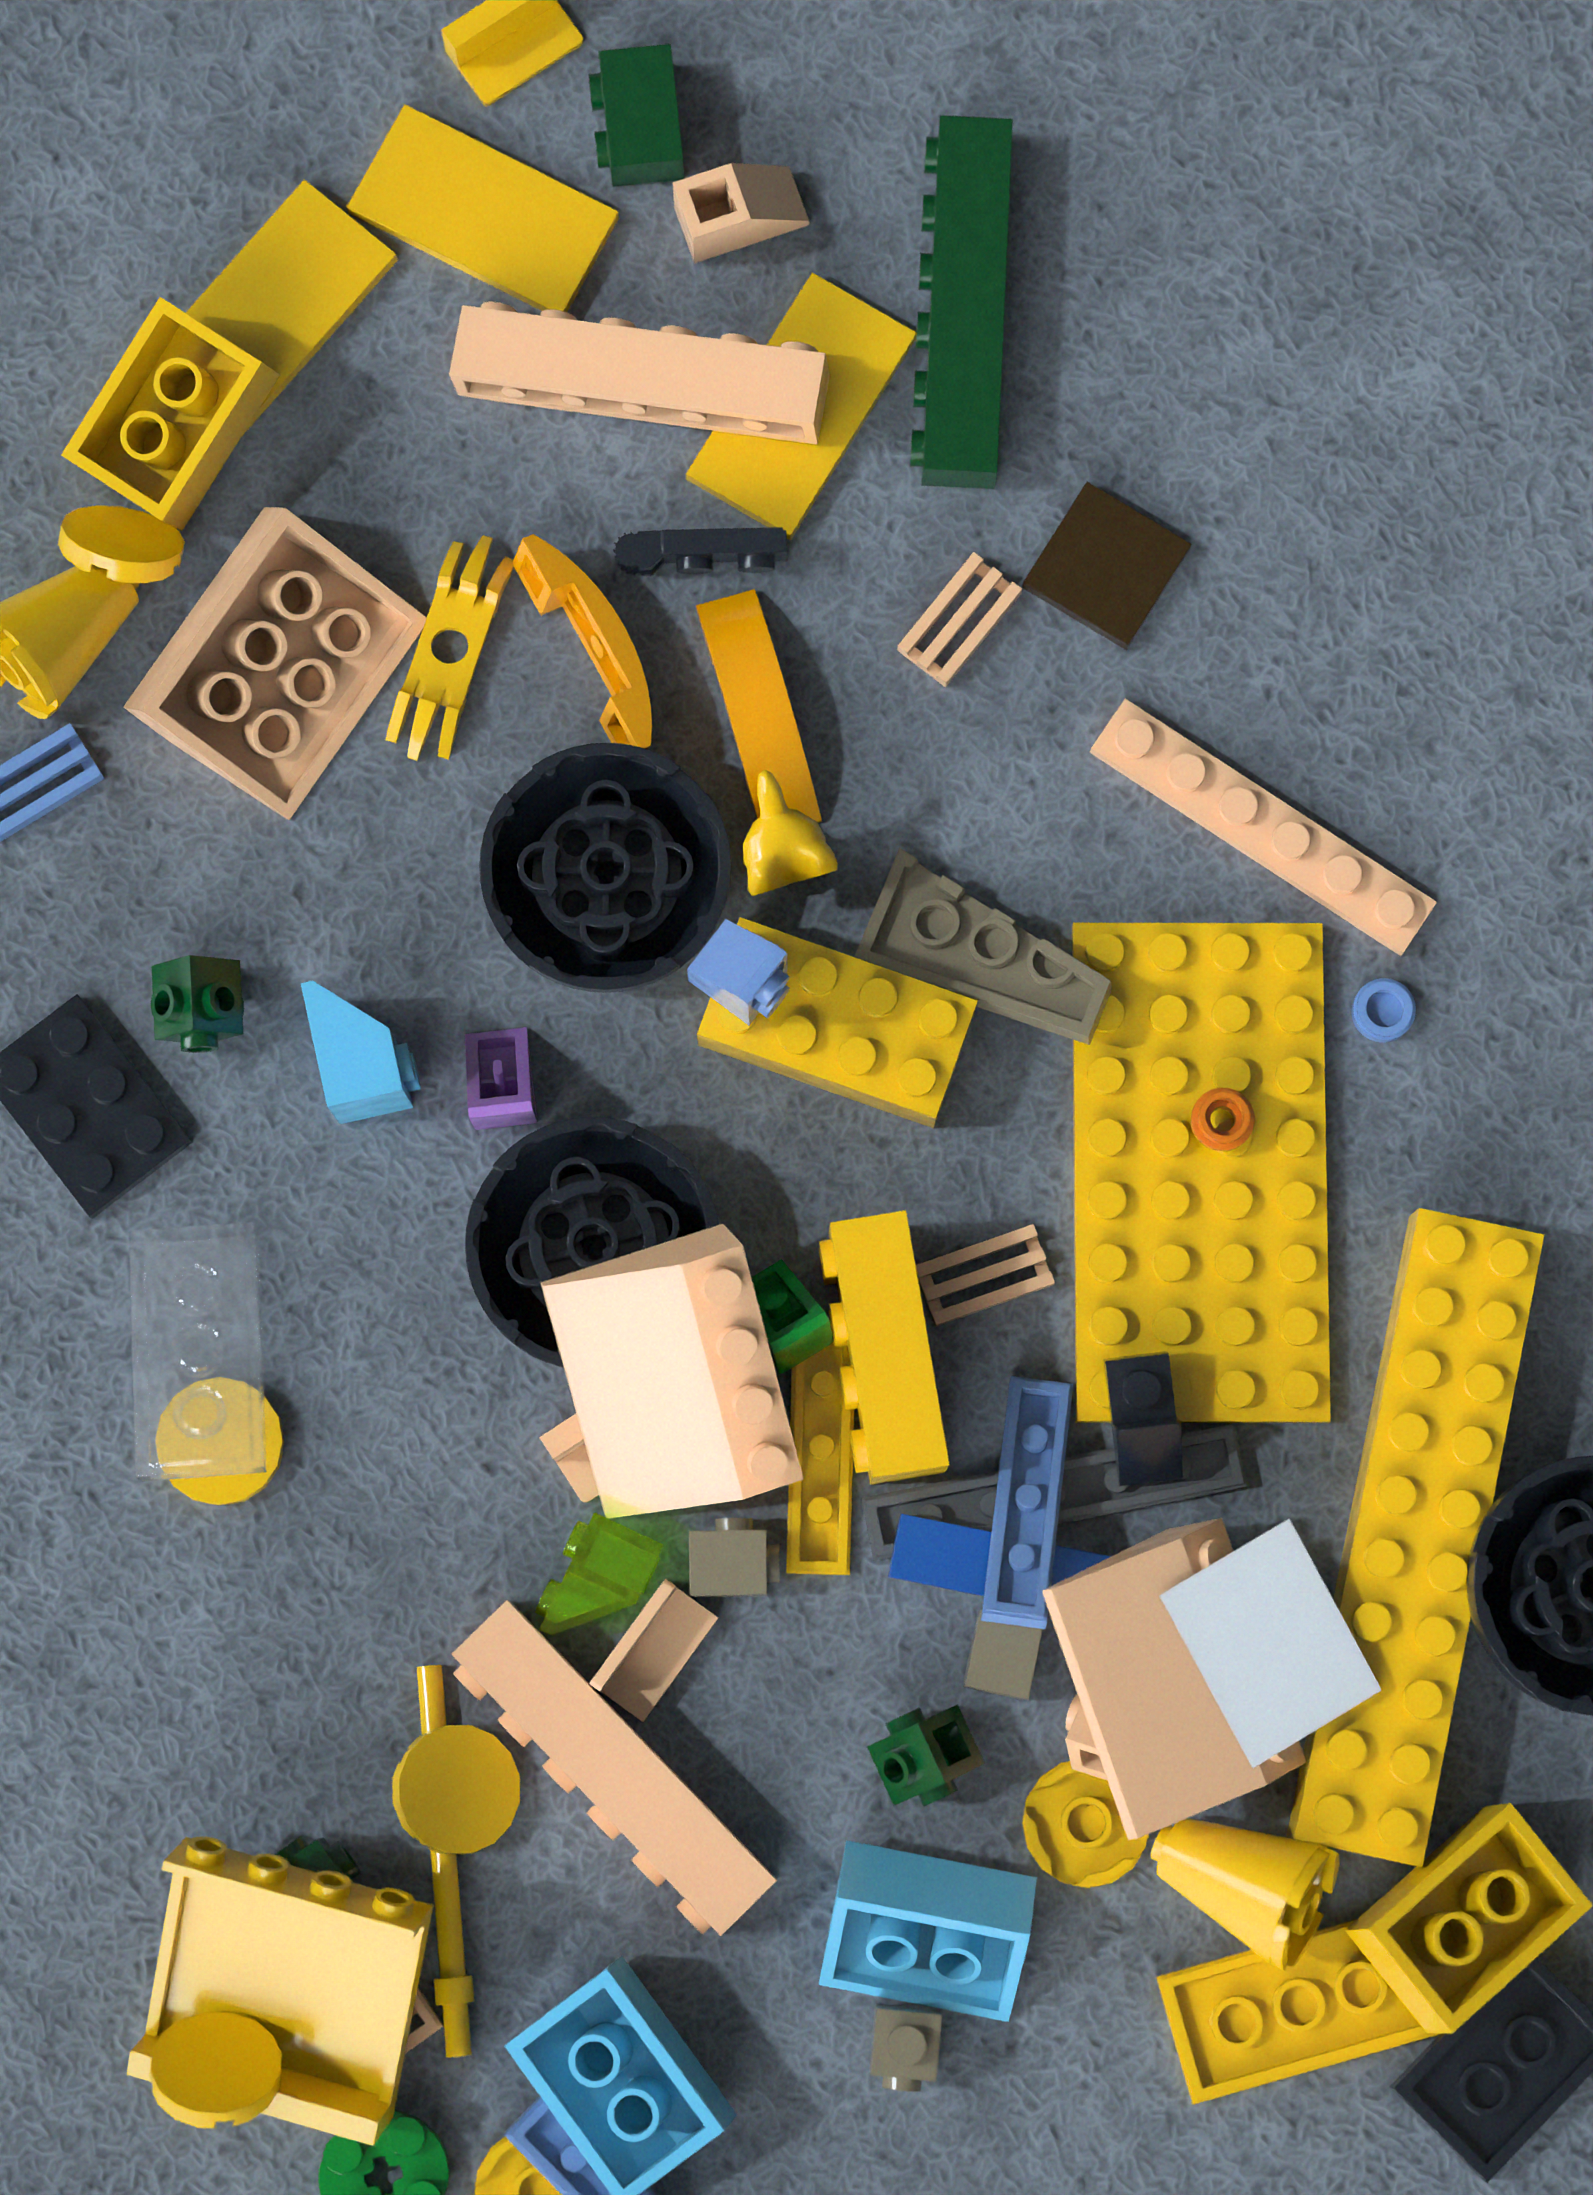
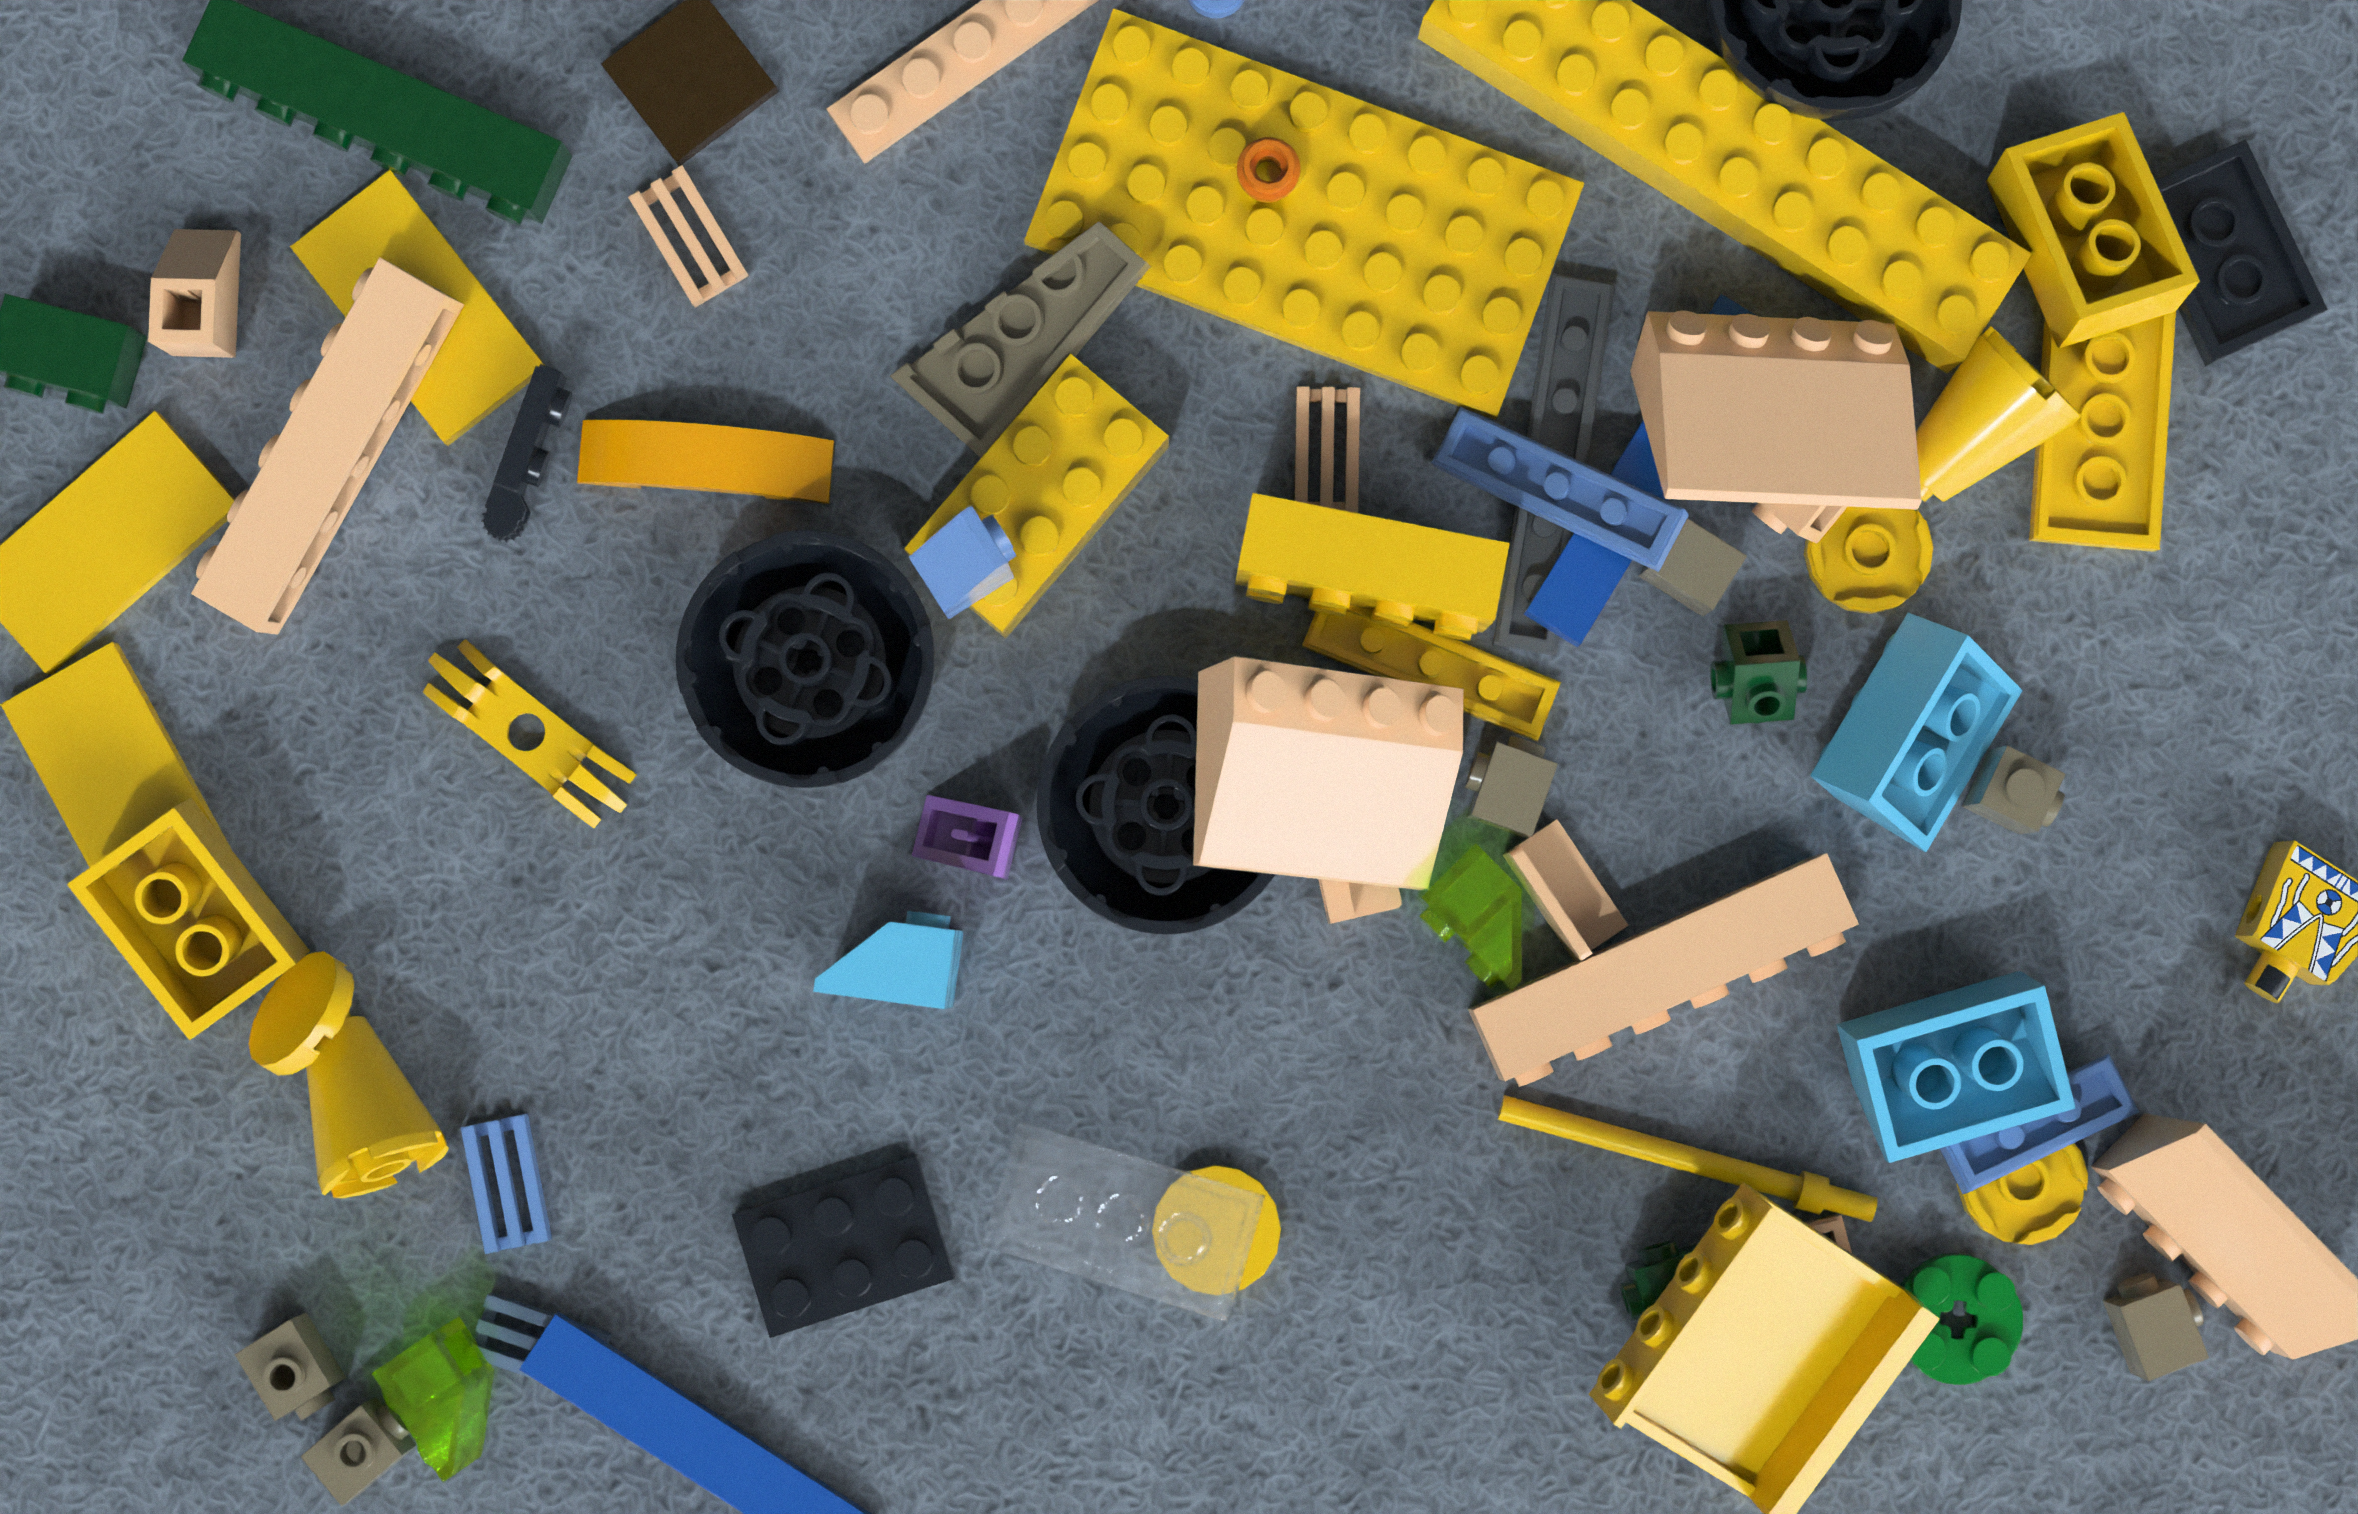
camera: 70 degrees left, 5 degrees up
(197, 1002) = (785, 1100): dark green brick -> none
(215, 2069) = (1817, 1442): yellow tile -> none
(277, 661) = (476, 904): light nougat slope -> none
(456, 1789) = (1629, 1122): yellow tile -> none
(558, 582) = (502, 605): light orange slope -> none
(783, 843) = (851, 479): yellow animal -> none
(790, 1316) = (1301, 640): green slope -> none
(1144, 1418) = (1521, 351): black slope -> none
(1270, 1643) = (1783, 308): white sticker -> none

